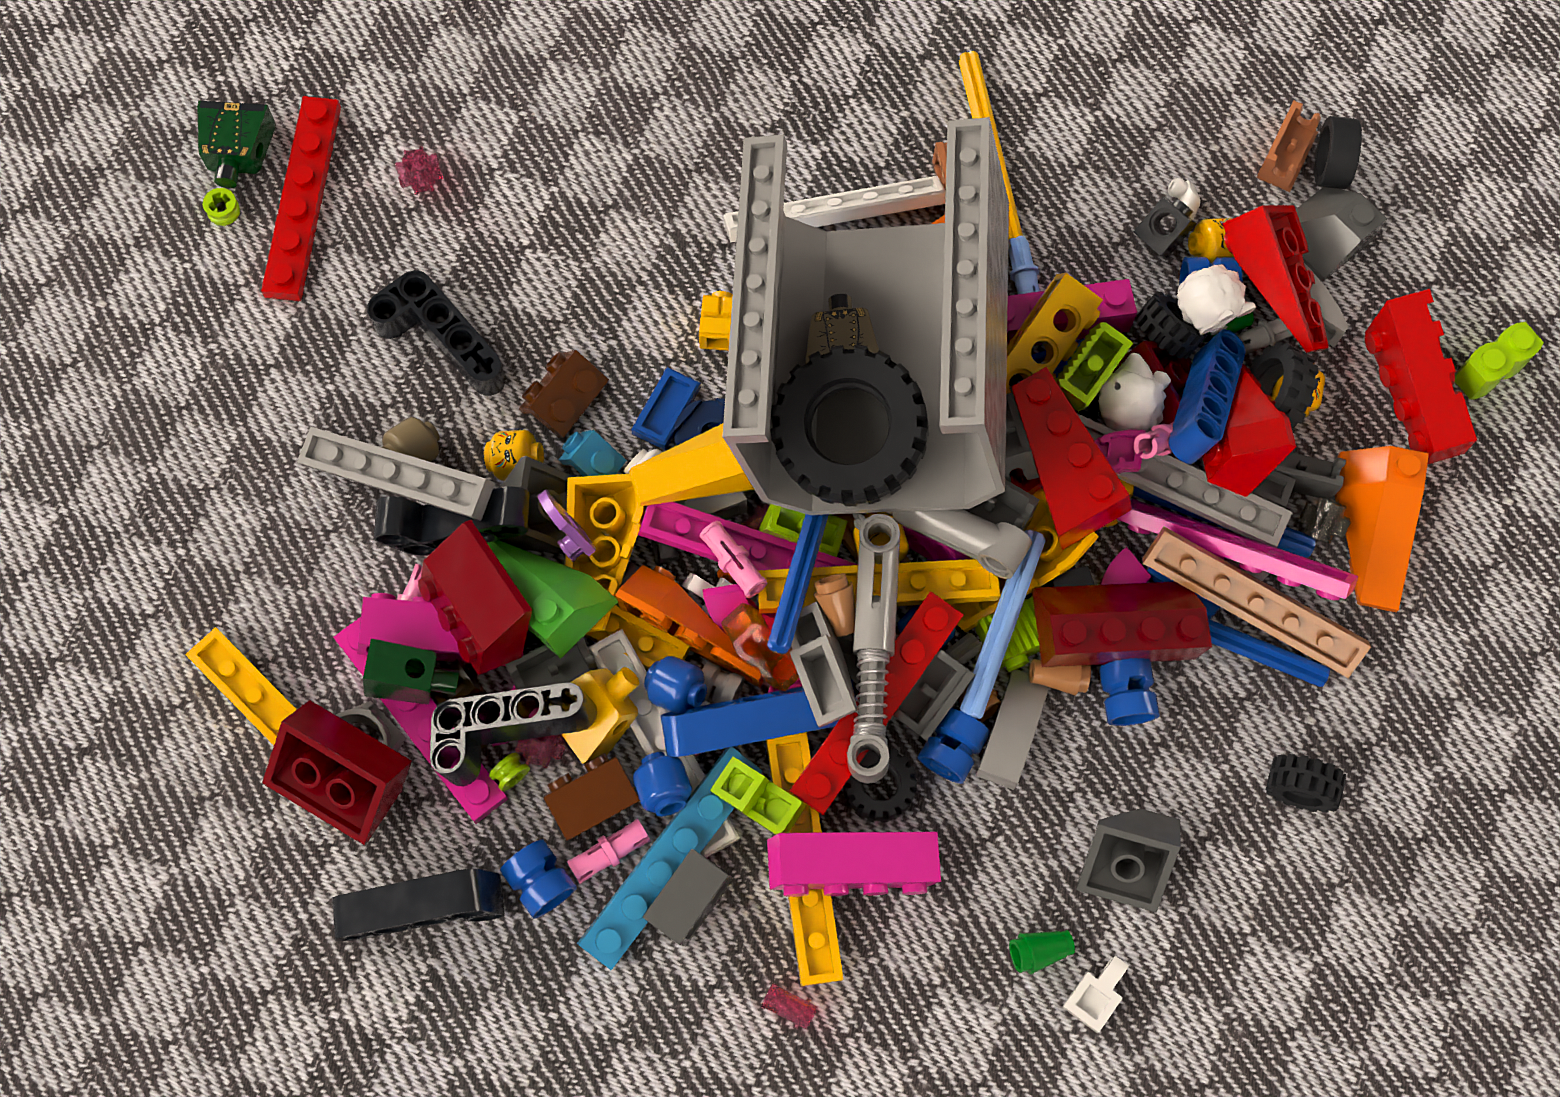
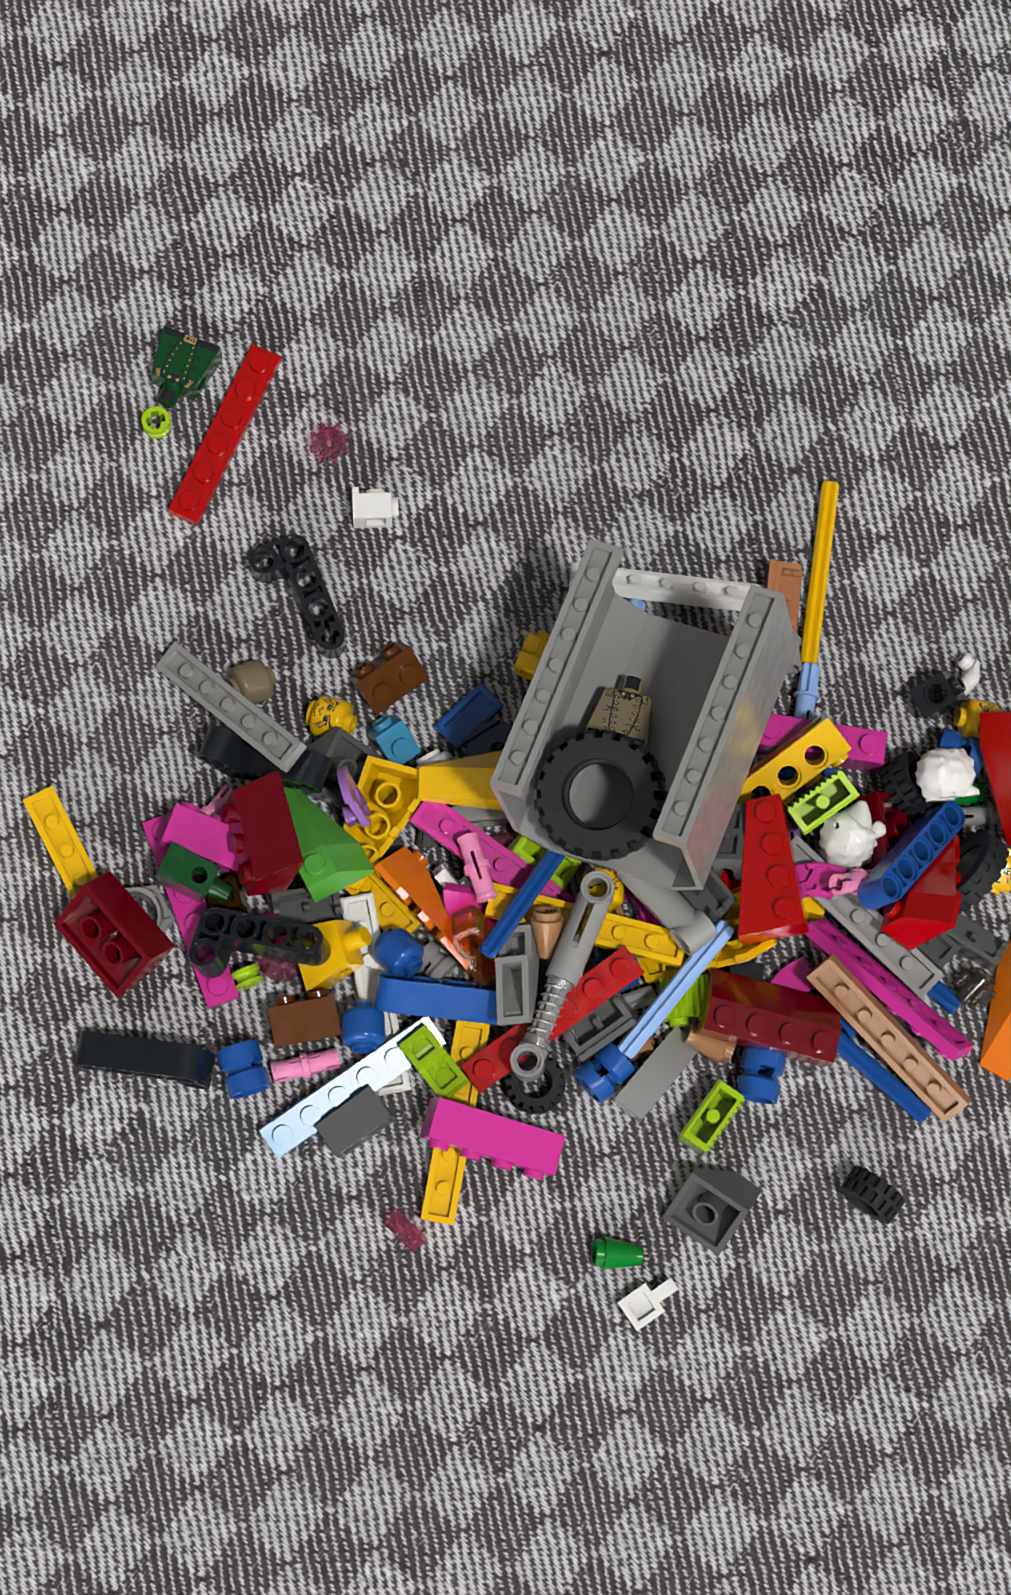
camera: 15 degrees right, 5 degrees up
(489, 222) = (373, 508): none -> white brick
(1093, 756) = (711, 1118): none -> lime brick

